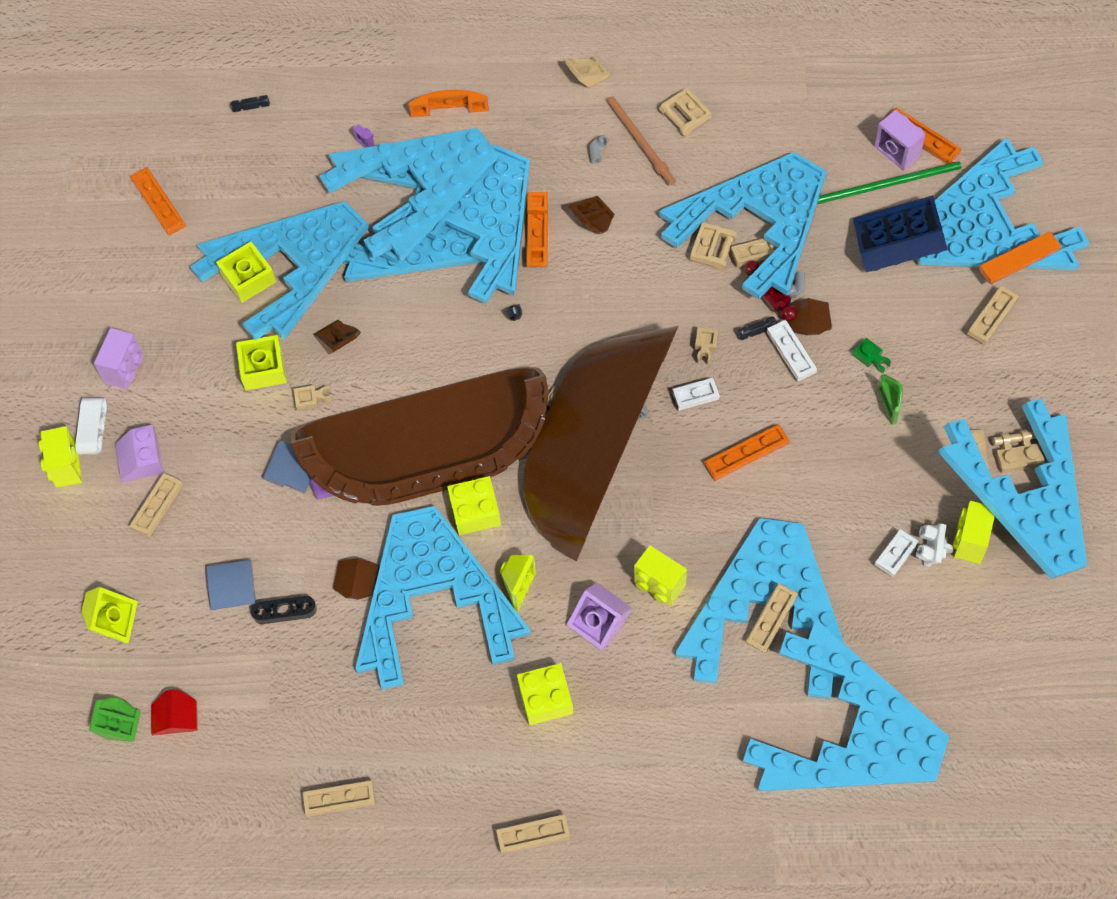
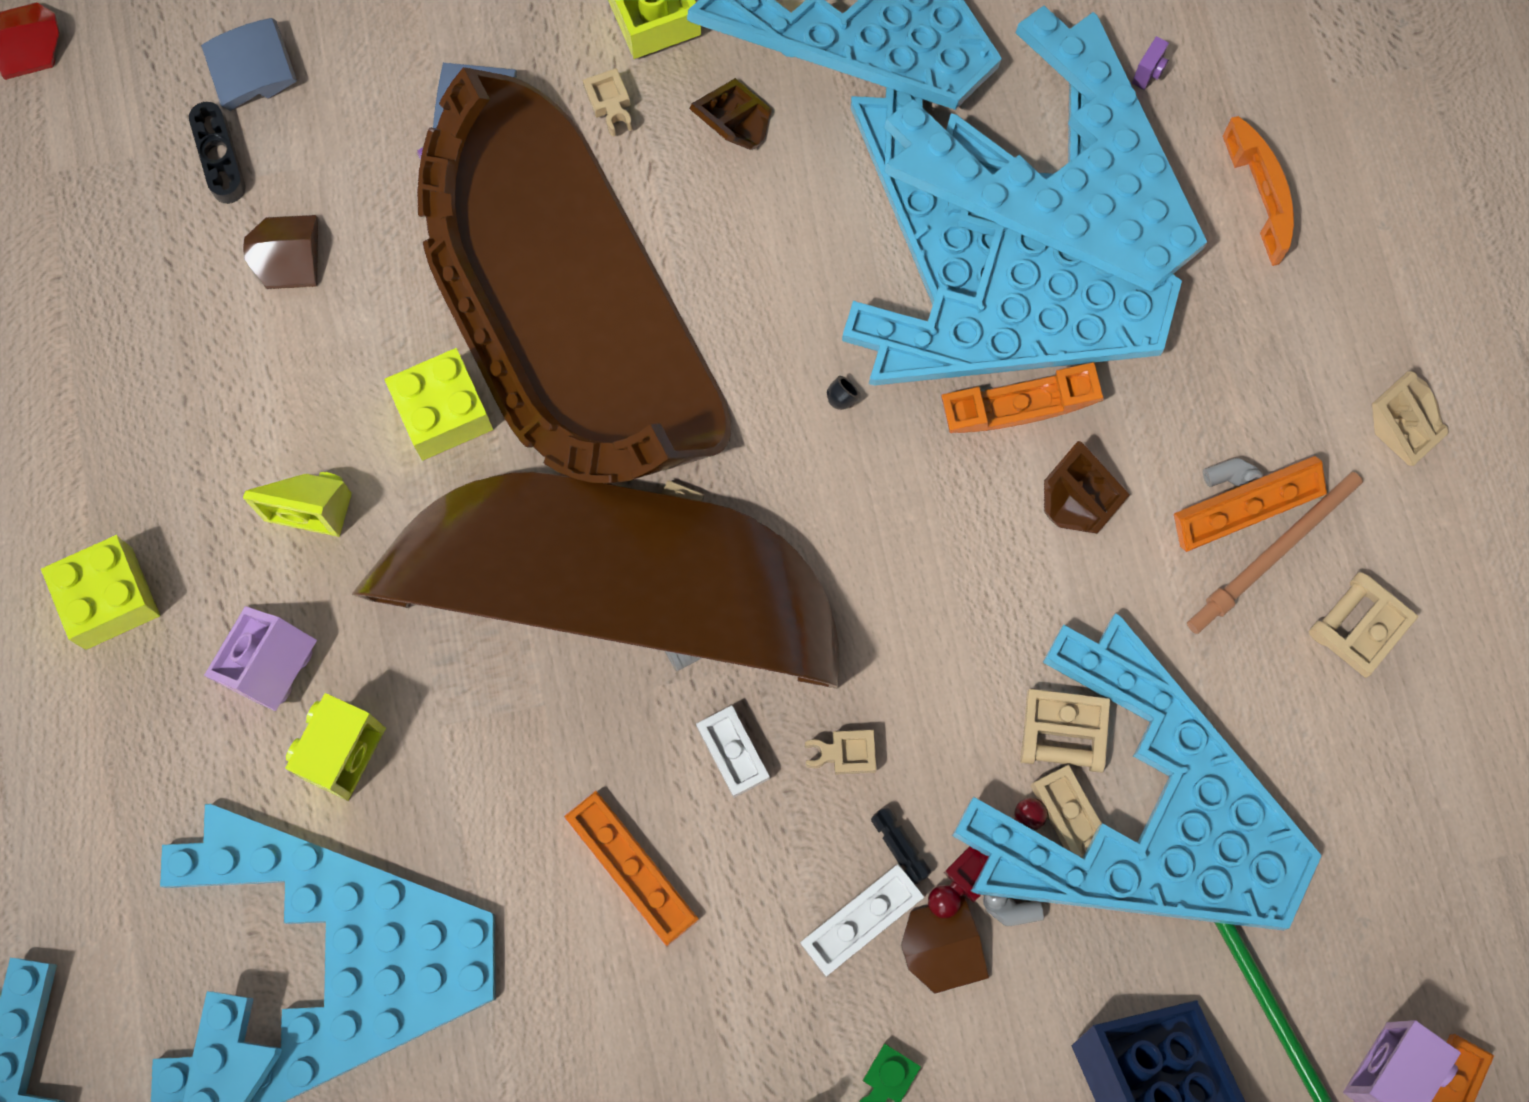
camera: 75 degrees right, 10 degrees up
(426, 558) = (327, 347): medium azure wing -> none
(615, 144) = (1250, 503): none -> orange tile
(772, 618) = (291, 968): tan tile -> none

